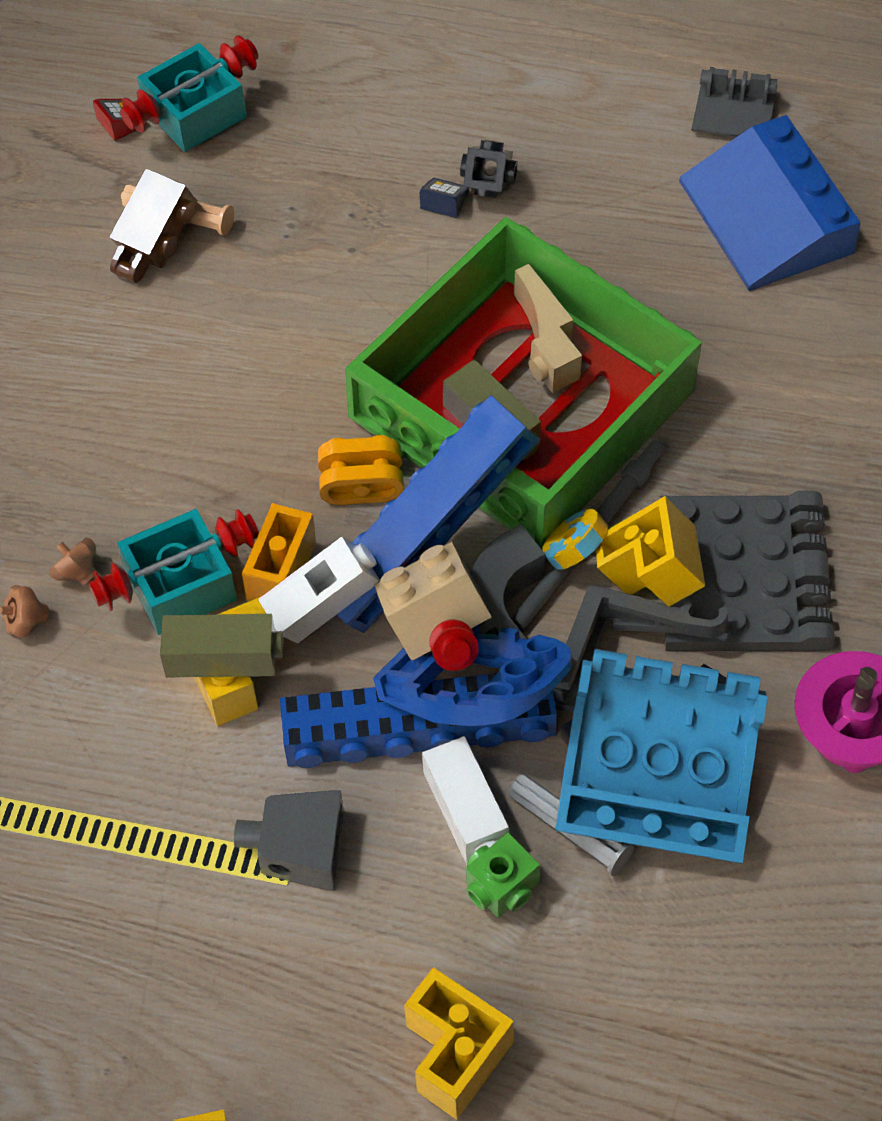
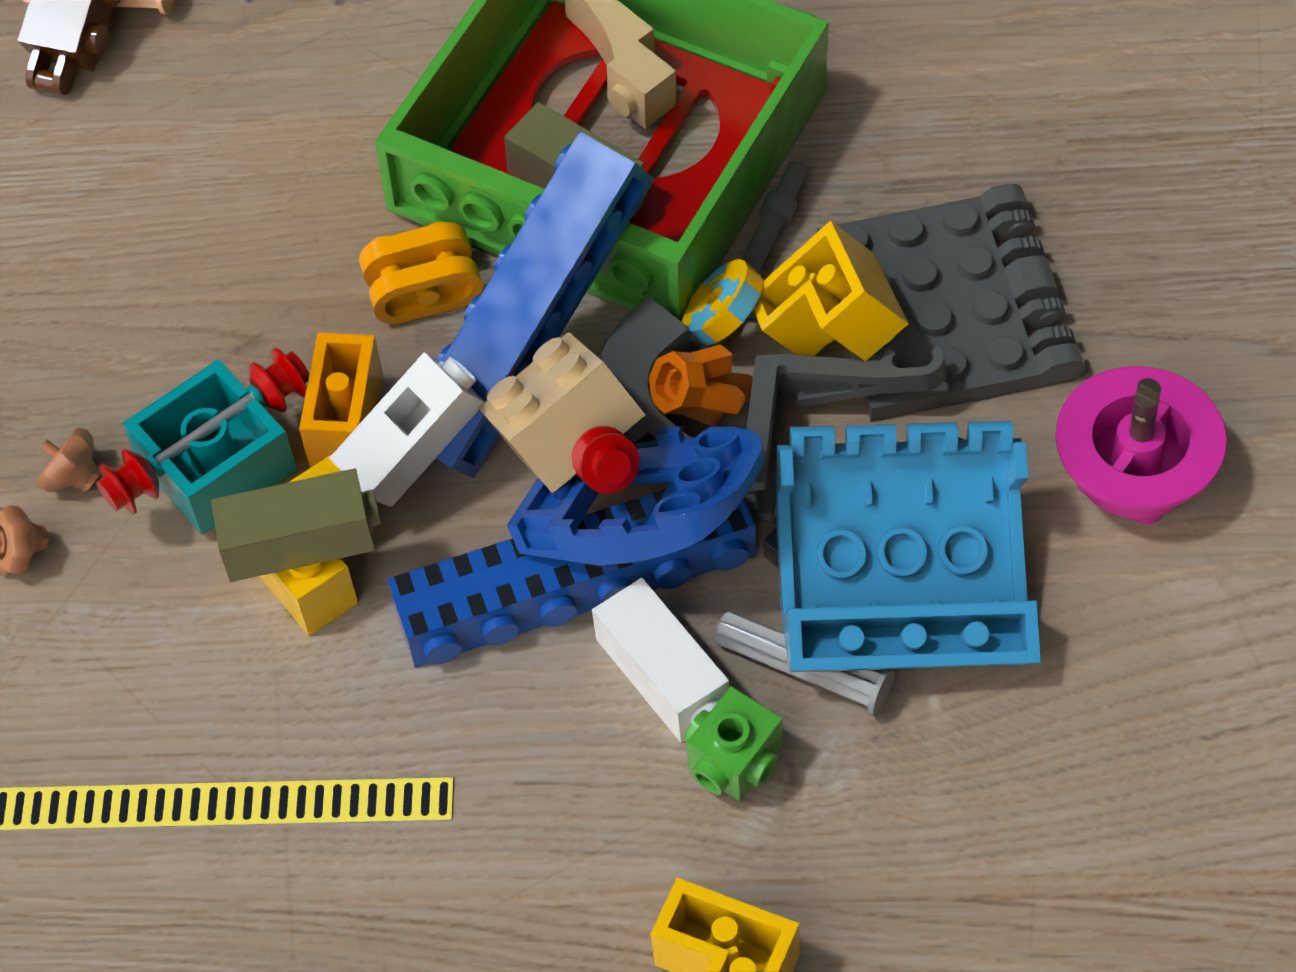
camera: 10 degrees left, 0 degrees up
(297, 837) = (451, 754): dark grey torso -> none
(542, 599) = (699, 385): none -> orange rock

